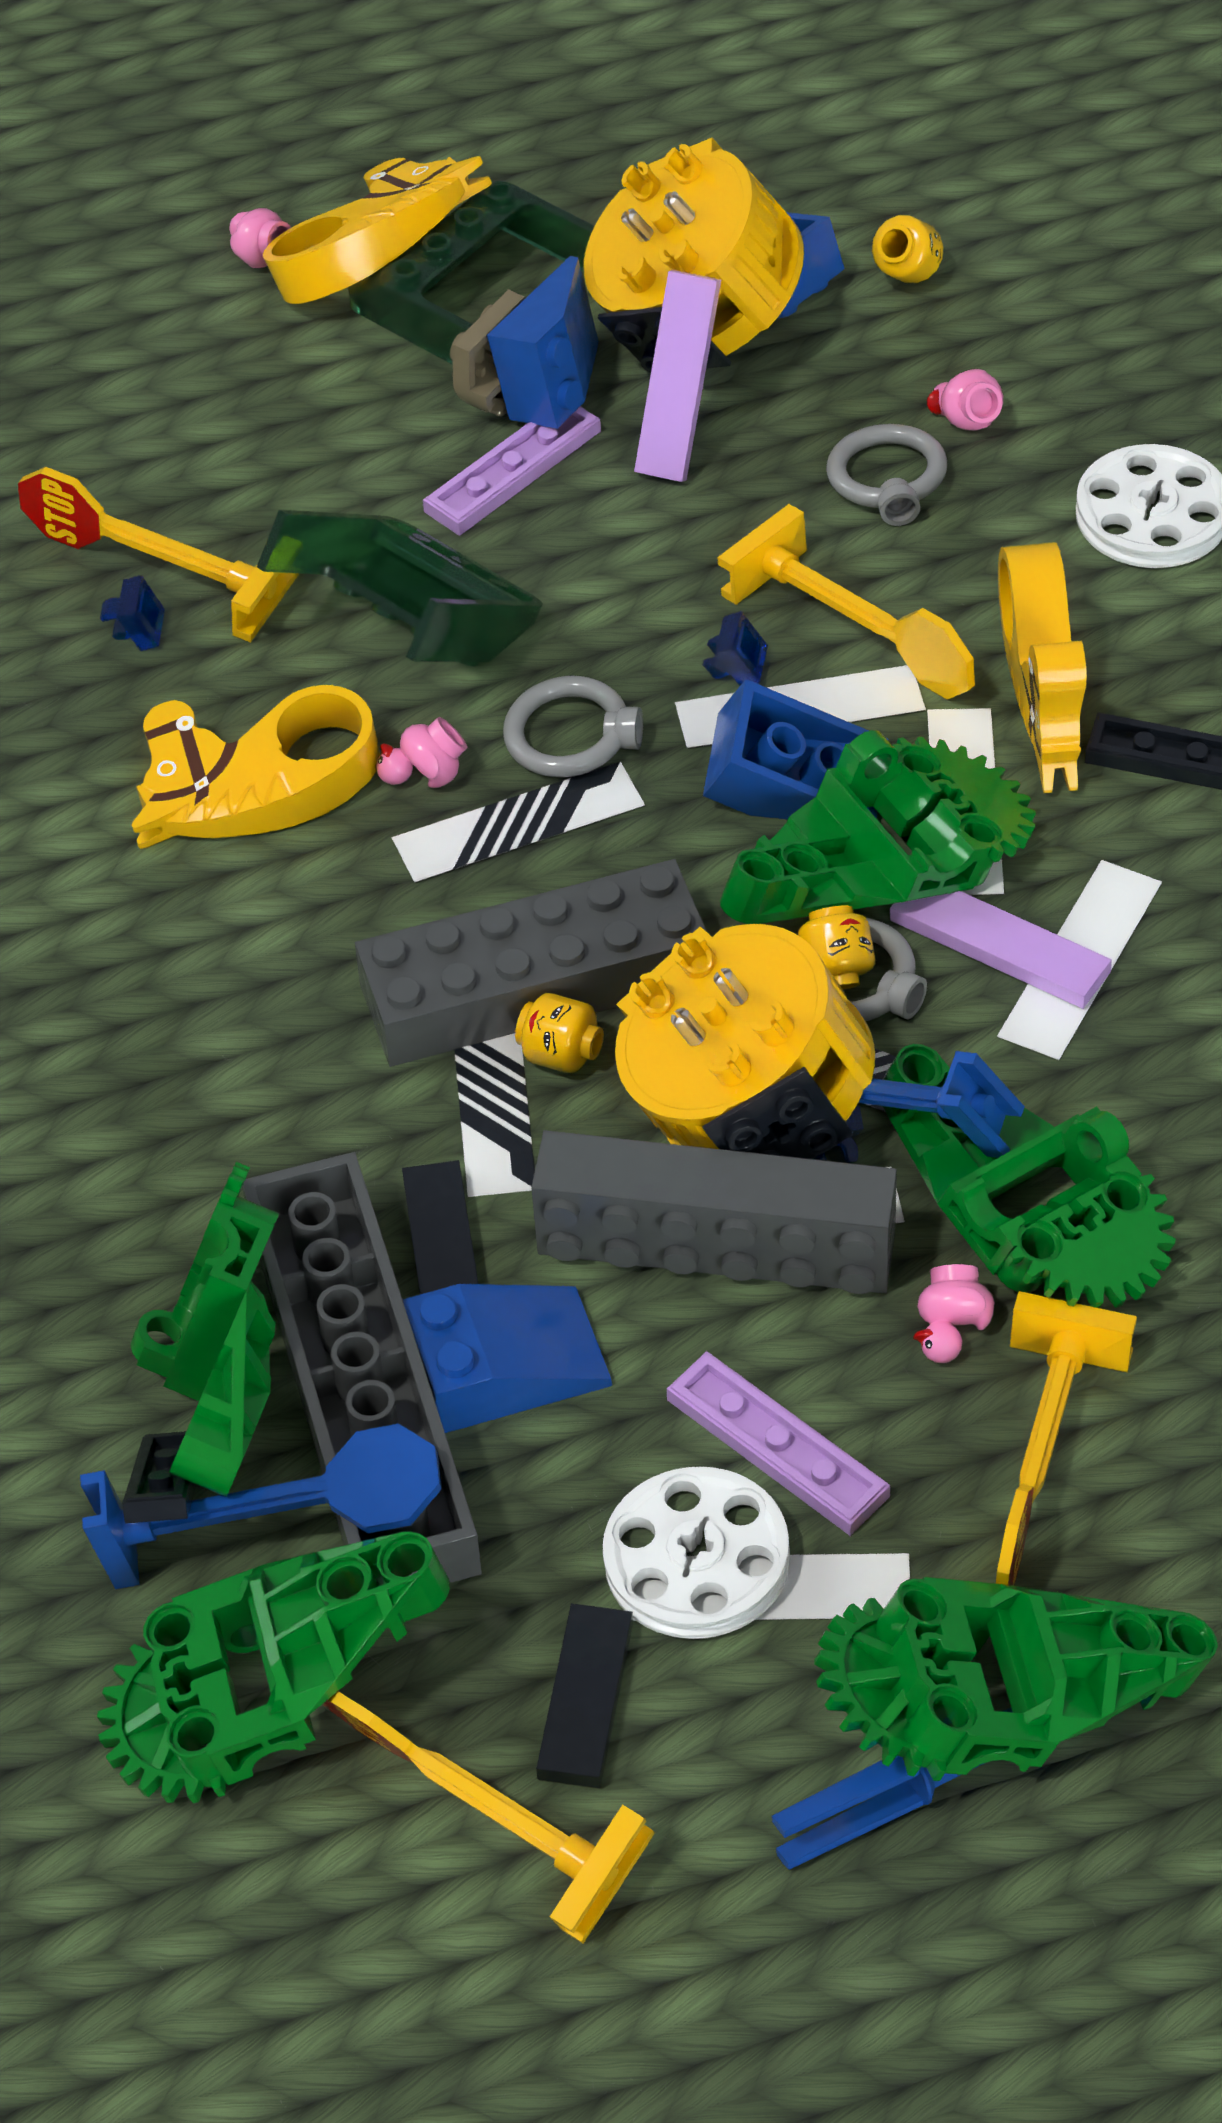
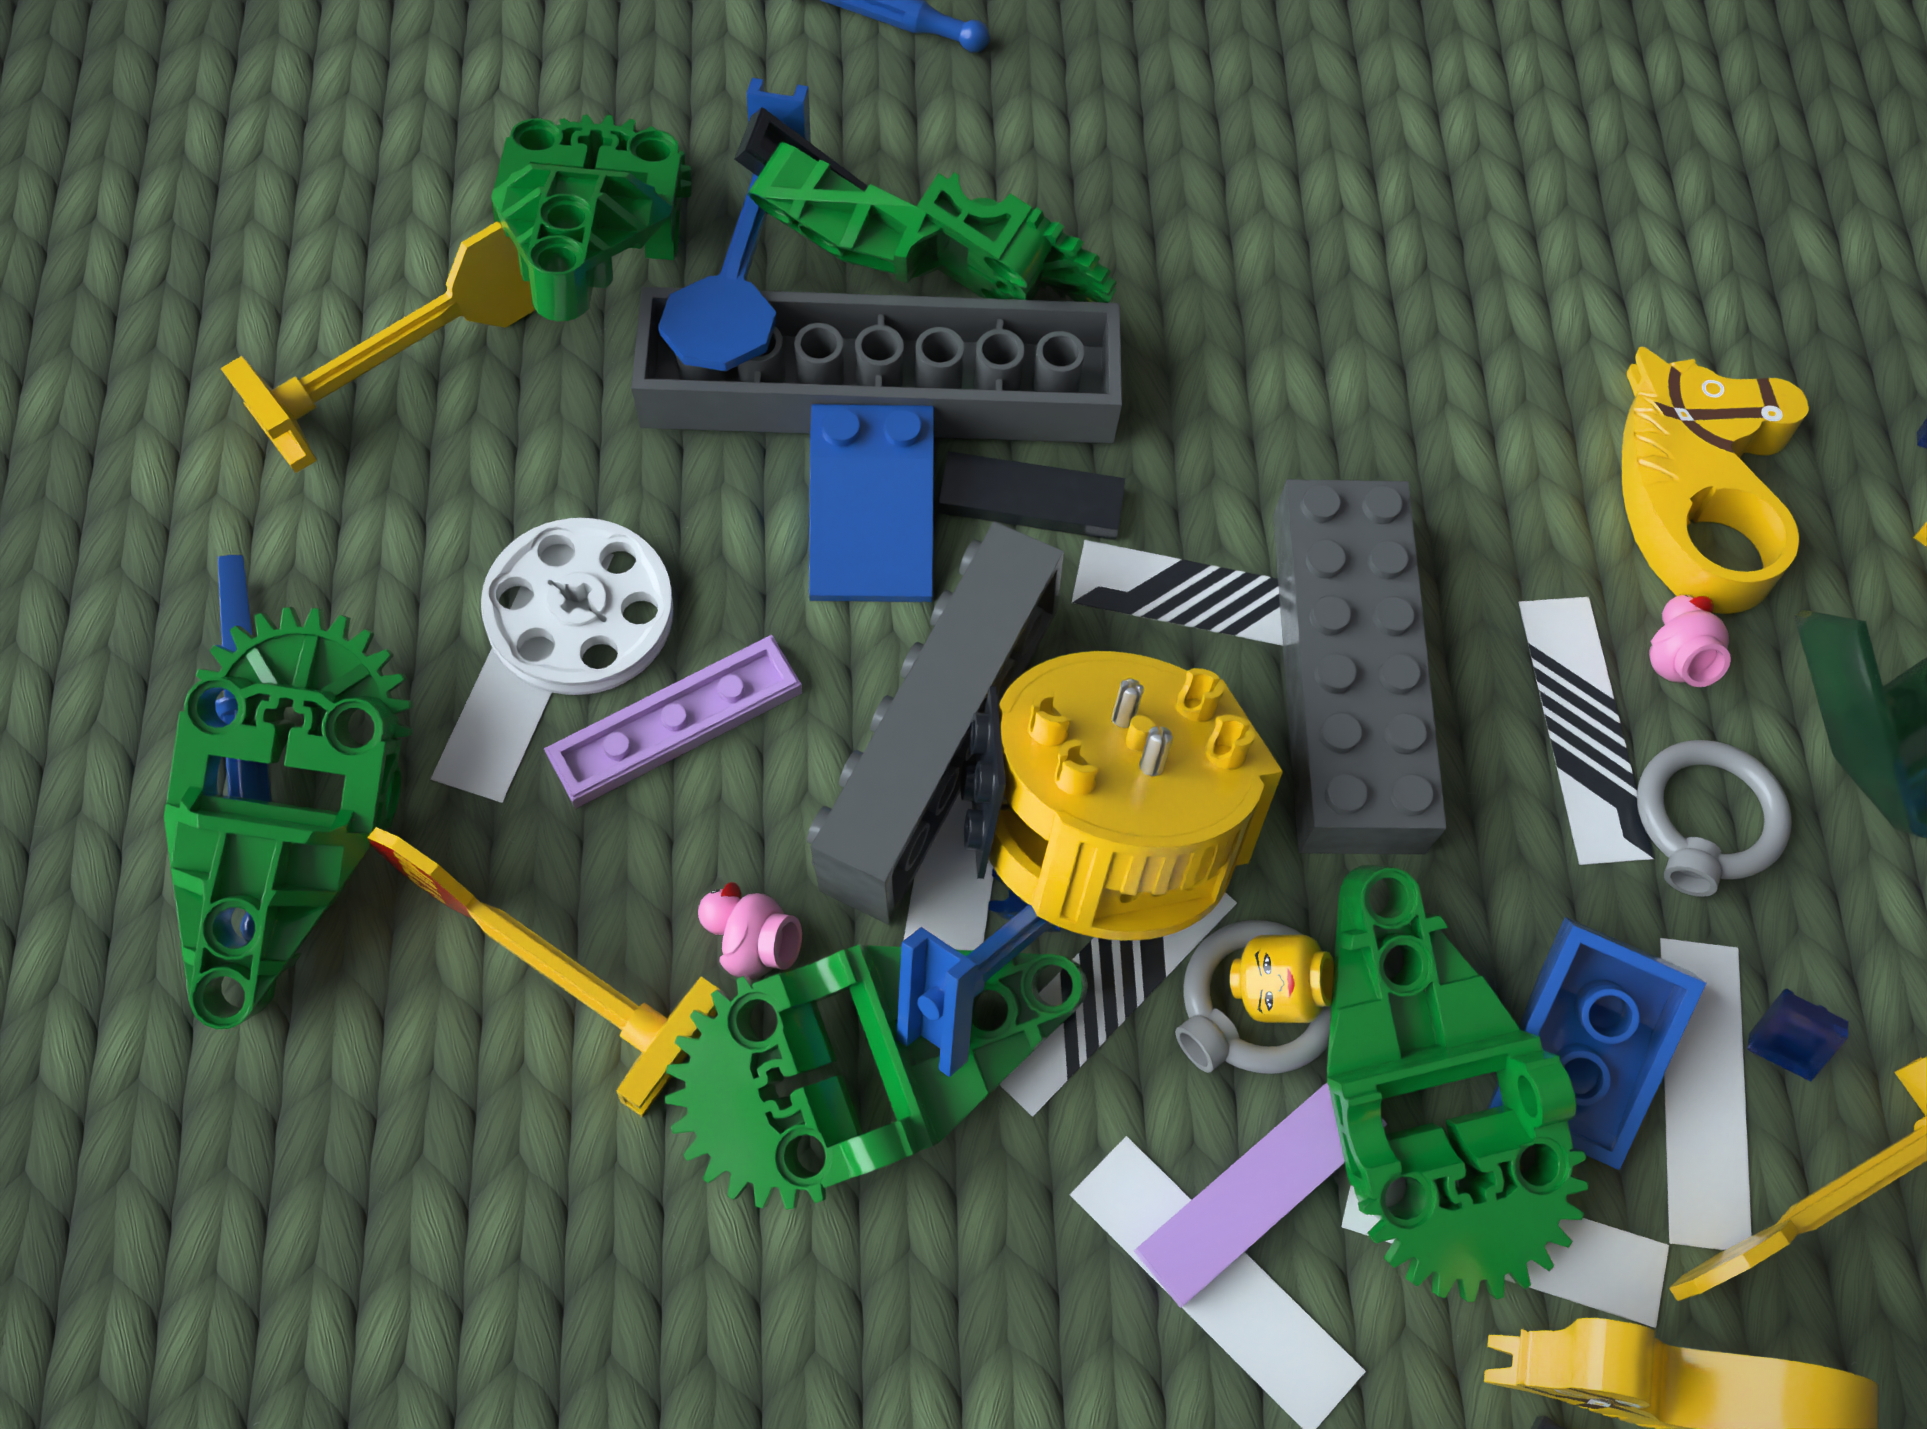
camera: 100 degrees right, 15 degrees up
(559, 1032) = (1250, 655): yellow head -> none
(585, 1696) = (475, 472): black tile -> none

